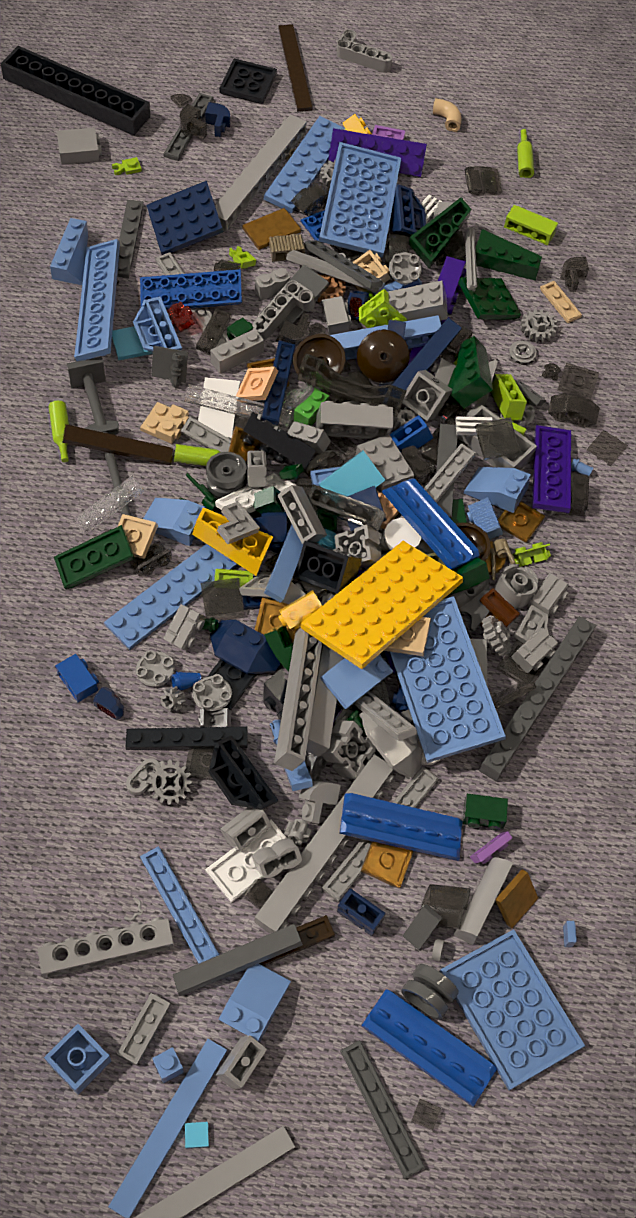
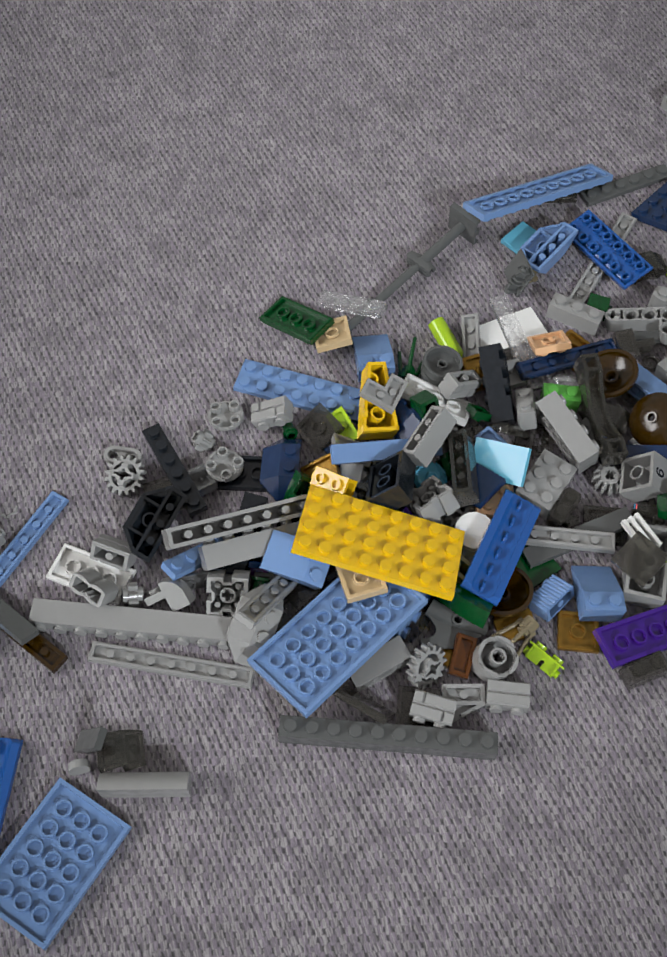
camera: 65 degrees right, 0 degrees up
(58, 419) = (403, 237): lime piece -> none
(71, 253) = (576, 154): medium blue wedge -> none
(77, 677) = (182, 366): blue brick -> none
(109, 703) = (173, 399): dark blue rock -> none
(117, 445) = (410, 278): dark brown tile -> none
(155, 557) = (327, 361): clear smoke bracket -> none
(165, 422) = (463, 302): tan plate -> none
(181, 316) = (575, 257): clear red brick -> none
(185, 680) = (226, 439): blue cone -> none
(213, 330) = (582, 287): clear smoke tile -> none
(258, 893) = (61, 592): clear smoke plate -> none
(361, 912) = (80, 681): dark blue brick -> none
(387, 863) = (144, 681): pearl gold tile -> none
(401, 826) = (179, 677): blue plate -> none
(412, 434) = (593, 488): blue brick -> none
(430, 991) = (28, 775): dark grey wheel -> none
(485, 811) = (235, 743): dark green brick -> none
(497, 843) = (196, 764): medium lavender plate -> none
(516, 898) = (159, 812): pearl gold tile -> none
(569, 931) = (151, 883): medium blue tile -> none

